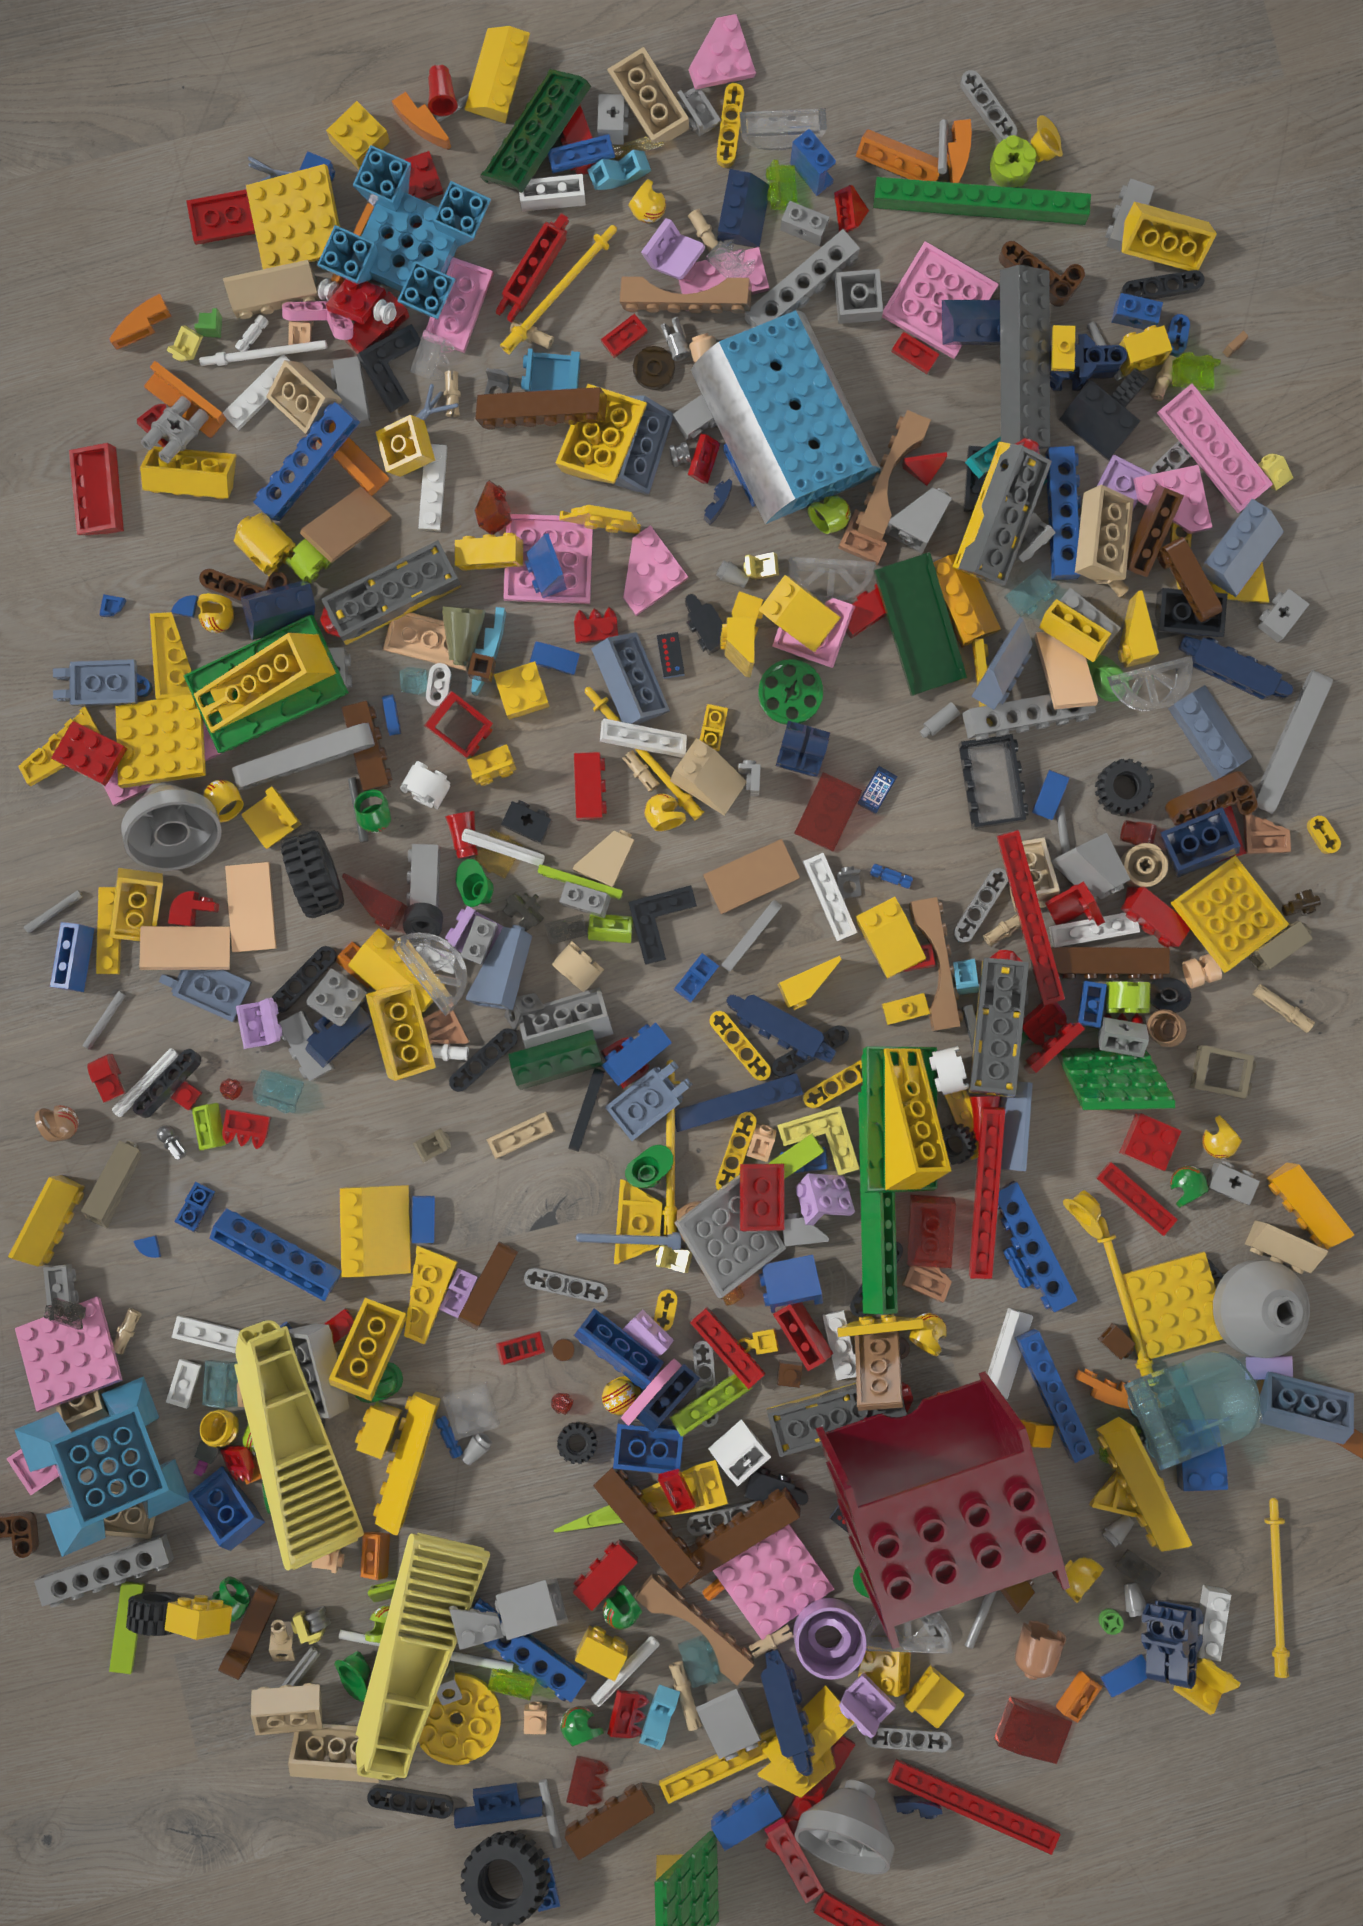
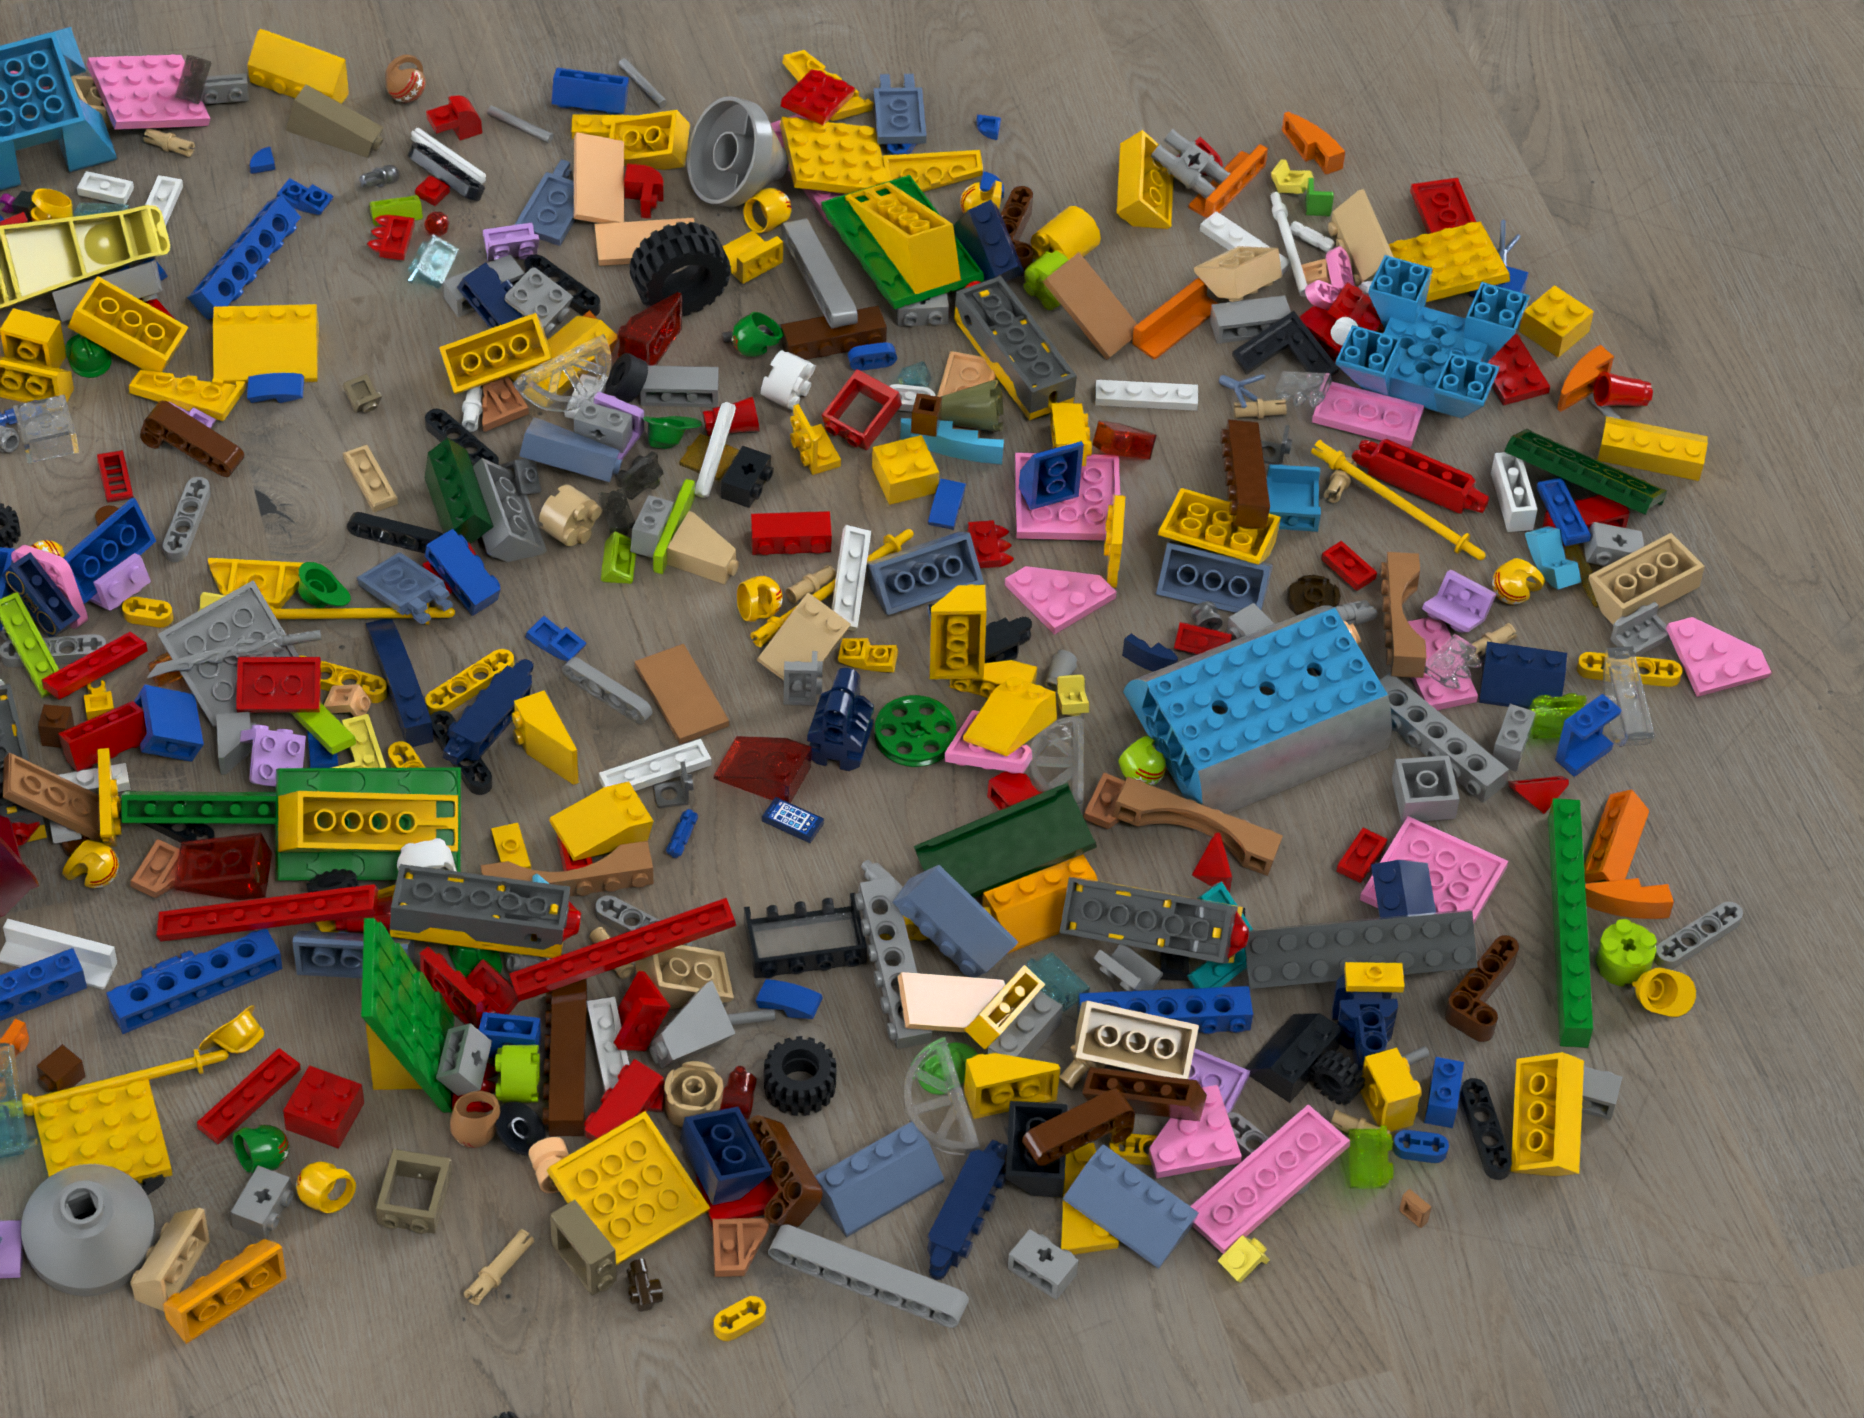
camera: 85 degrees right, 35 degrees down
(96, 490) = (1119, 112): red slope -> none
(317, 459) = (1162, 271): blue brick -> none
(405, 445) = (1190, 358): yellow brick -> none
(561, 1403) = (43, 513): clear red plate -> none
(647, 909) = (632, 587): black plate -> none
(672, 1240) = (238, 555): sand blue piece -> none
(733, 1221) = (242, 648): none -> light grey sword
(919, 520) = (1141, 850): light grey slope -> none
(943, 141) = (1622, 874): light grey bar -> none

